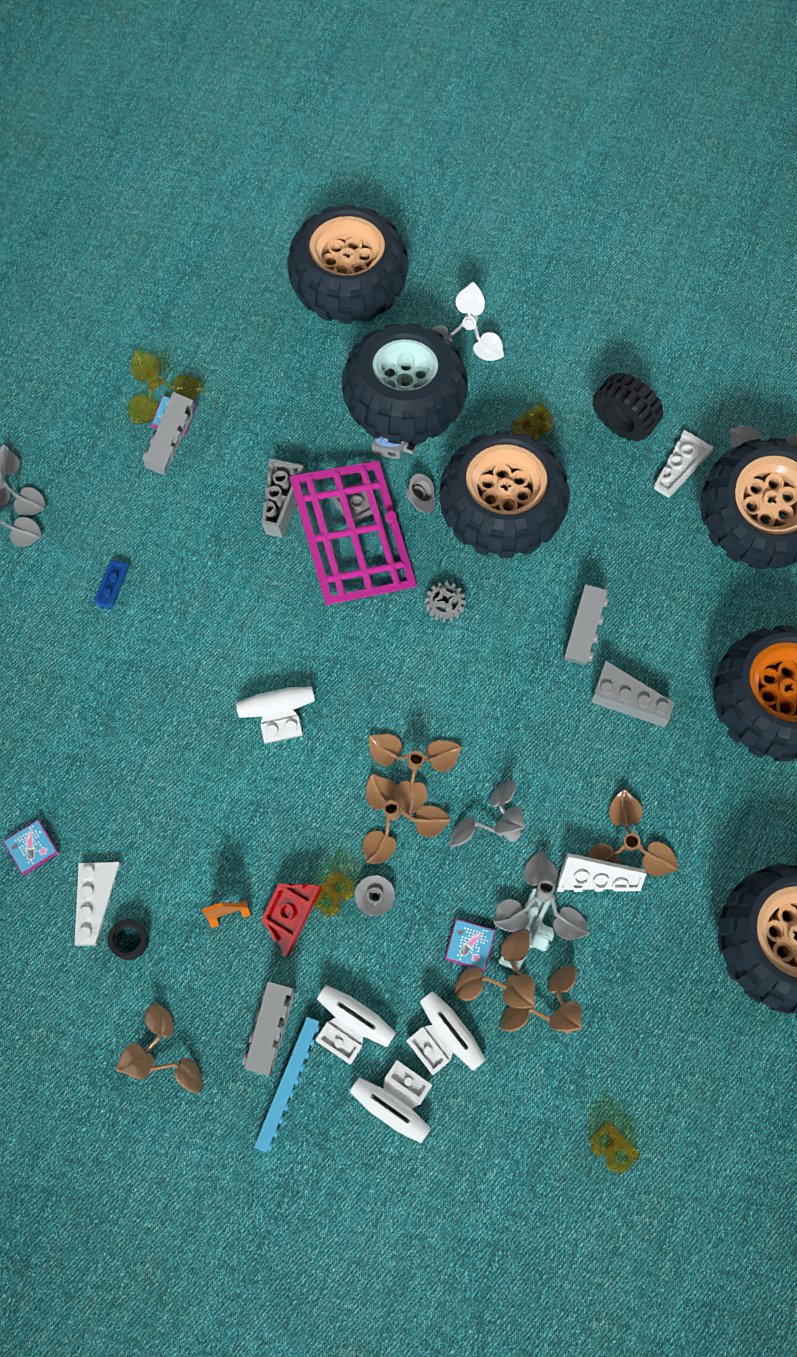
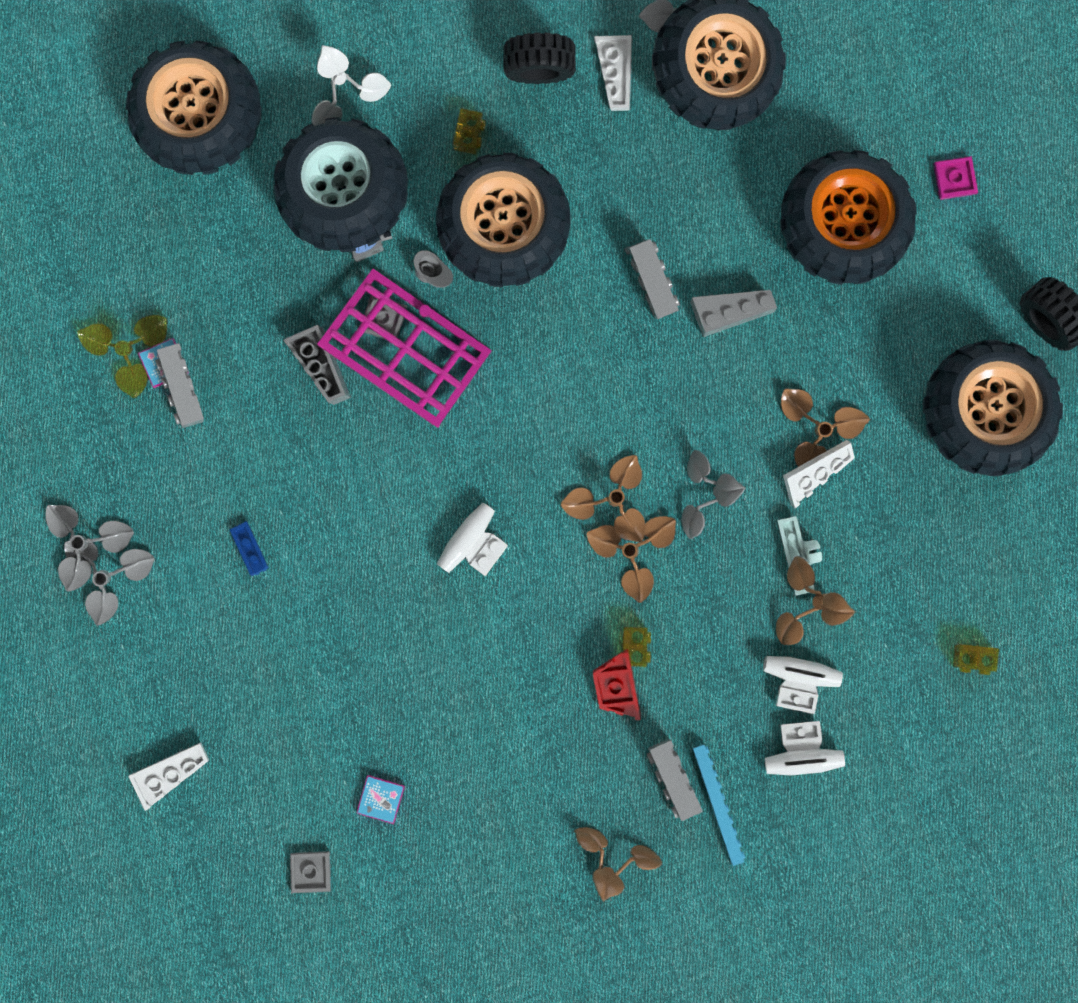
camera: 35 degrees left, 15 degrees up
(93, 897) = (459, 792): white wing -> none
(116, 928) = (515, 818): black tyre -> none
(221, 909) = (563, 736): orange flag -> none
(351, 1023) = (728, 730): white plate -> none
(370, 886) = (677, 622): light grey dish -> none
(450, 596) = (519, 342): light grey gear -> none
(470, 944) = (764, 599): medium azure tile -> none
(541, 872) = (774, 503): light grey plant -> none
(564, 1019) = (878, 598): medium nougat plant -> none

